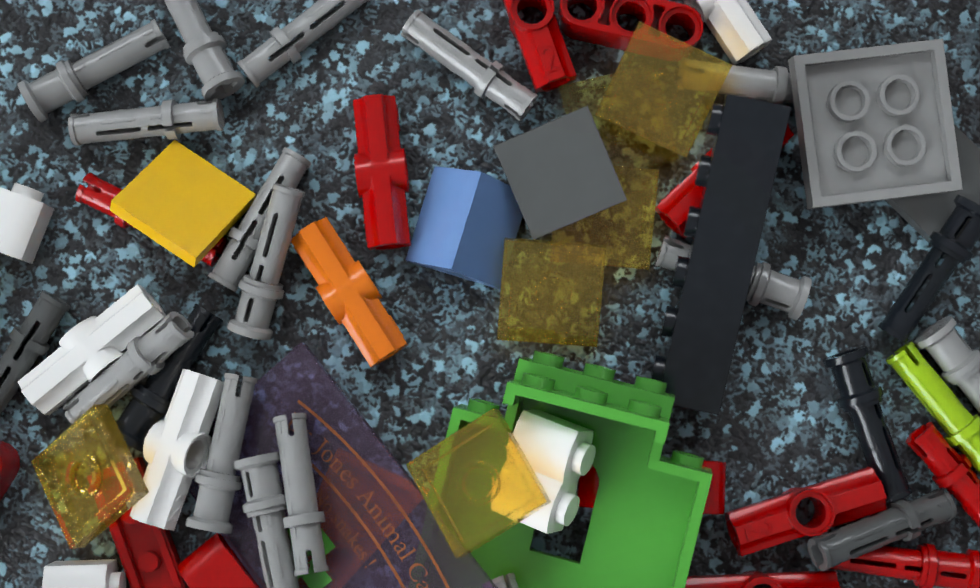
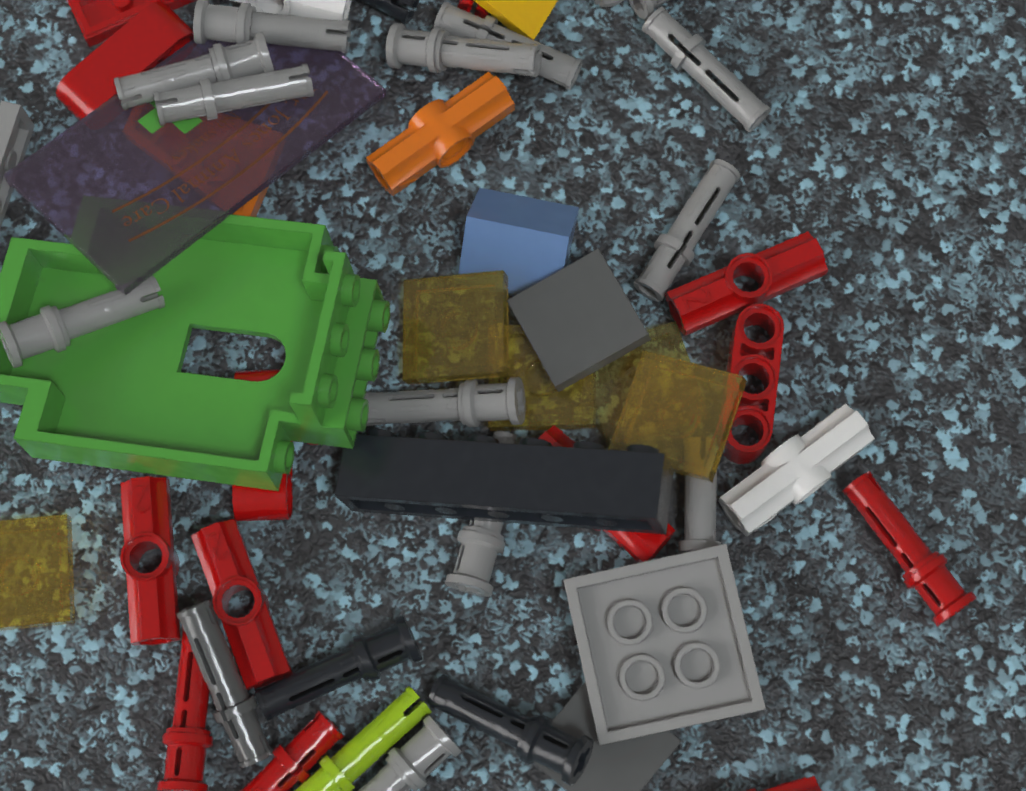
camera: 90 degrees right, 10 degrees down
(381, 172) = (565, 153): red piece -> none
(478, 483) = (248, 247): clear yellow tile -> none
(558, 456) = (264, 315): white brick -> none
(633, 282) = (468, 403): none -> light grey pin

